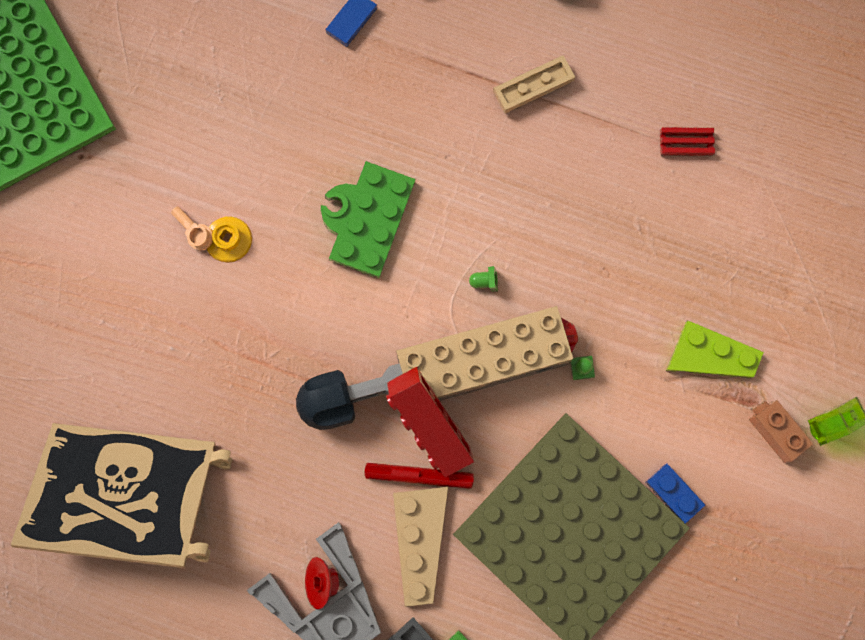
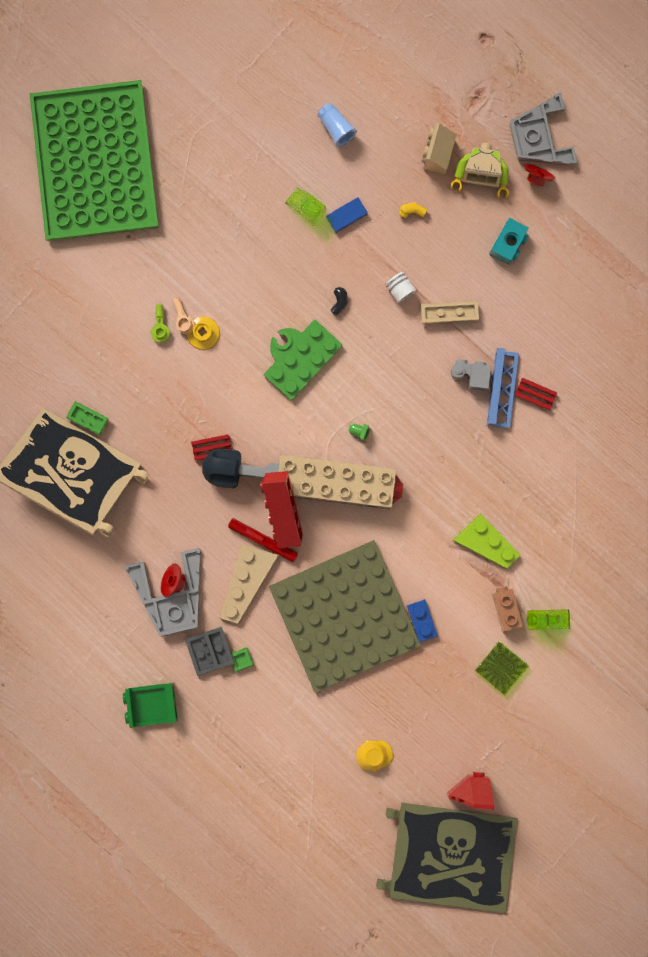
camera: 25 degrees right, 5 degrees up
(118, 411) = (87, 418): none -> bright green plate
(170, 259) = (160, 332): none -> lime plate
(293, 373) = (209, 440): none -> red tile
(296, 26) = (306, 205): none -> clear neon green slope
(388, 120) = (342, 300): none -> black arm
(458, 77) = (400, 287): none -> white piece
(582, 368) = (398, 515): bright green piece -> none
(603, 145) = (477, 374): none -> light grey brick
(636, 154) = (496, 385): none -> medium blue fence
(807, 512) = (501, 668): none -> clear neon green tile

